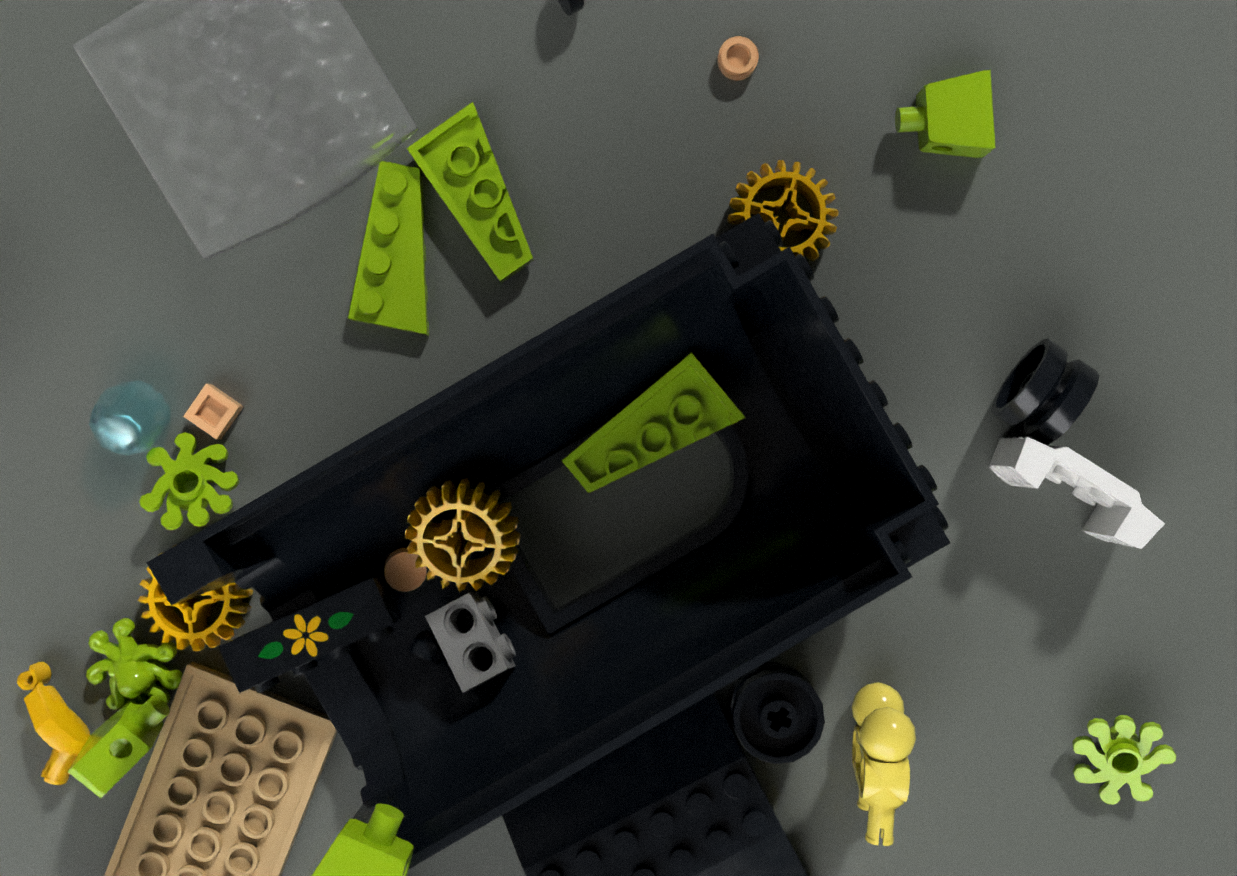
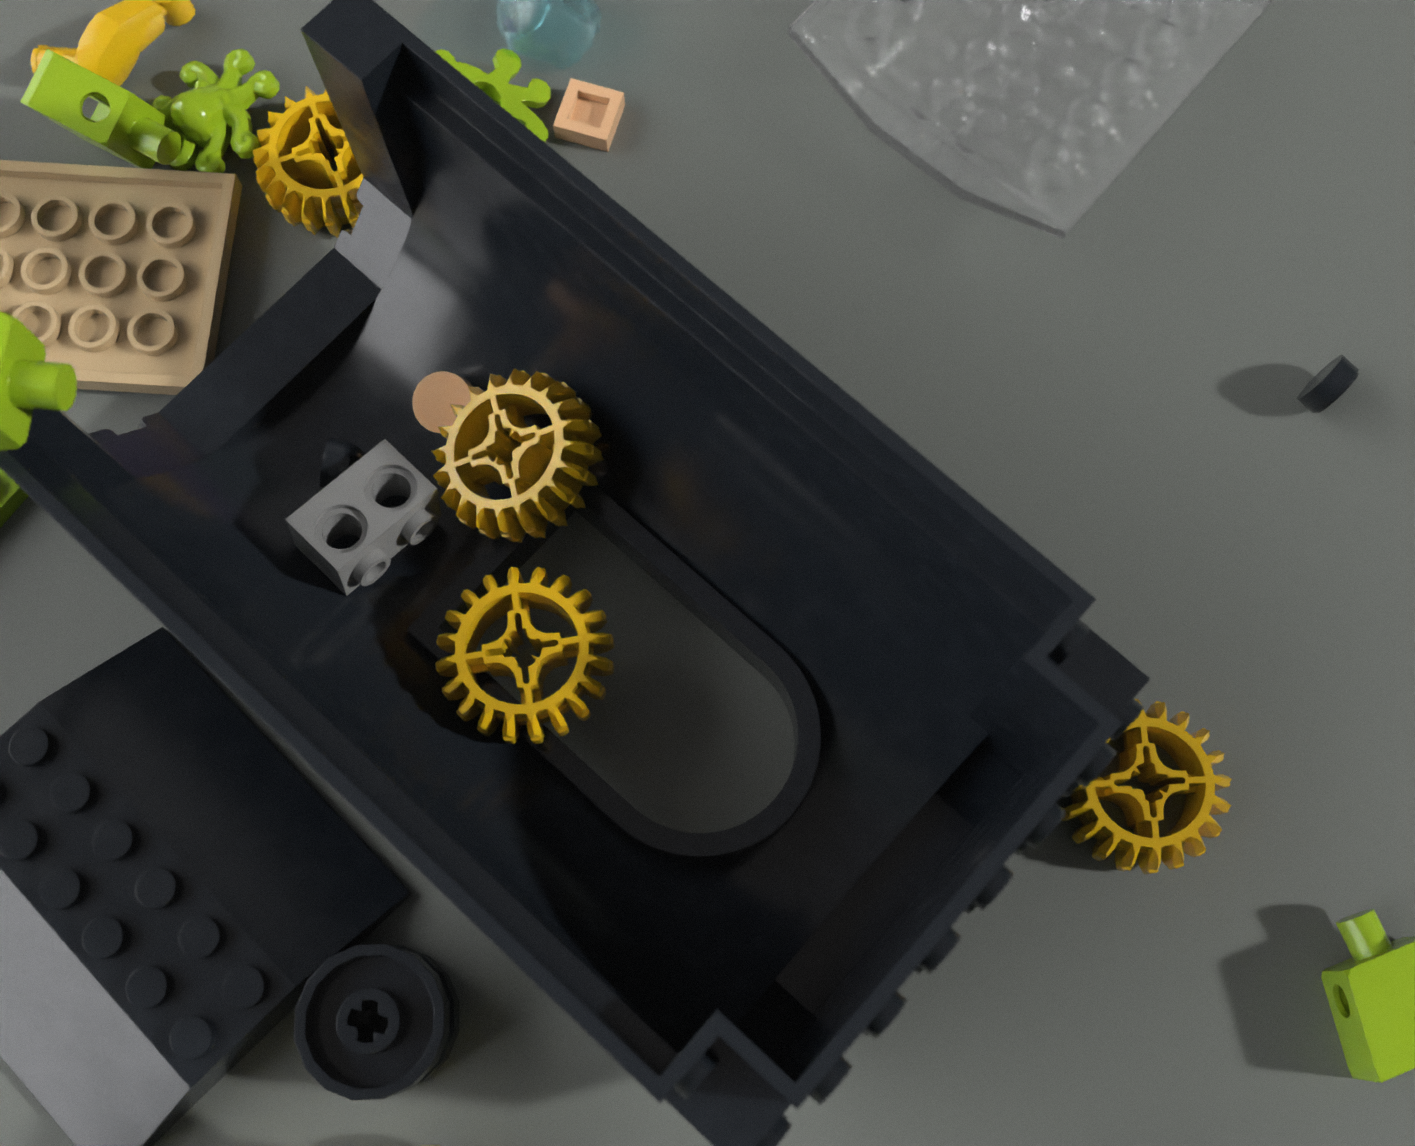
camera: 70 degrees right, 15 degrees down
(310, 633) = (321, 301): black brick -> none
(391, 267) = (858, 275): lime wing -> none
(467, 178) = (1010, 342): lime wing -> none
(612, 569) = (496, 656): none -> yellow gear
(660, 421) = (774, 688): lime wing -> none
(737, 58) = (1340, 650): light nougat tile -> none

